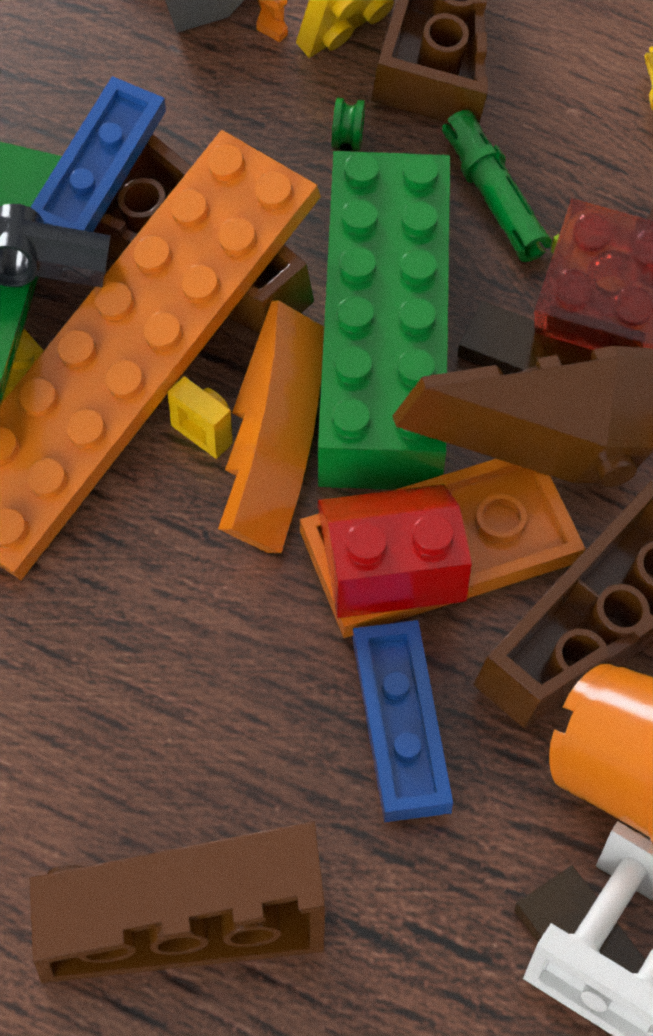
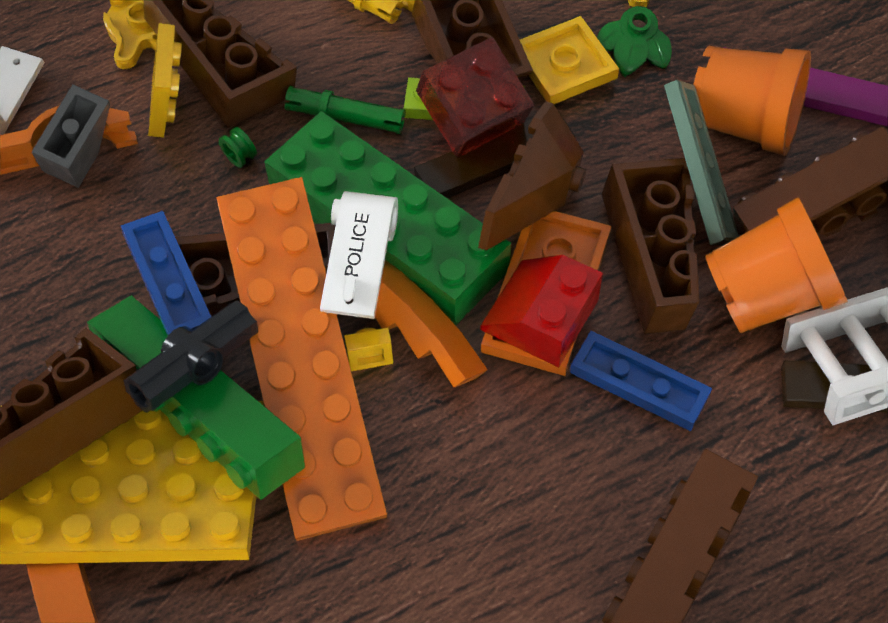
camera: 50 degrees left, 0 degrees up
(303, 284) = (358, 252): none -> white door

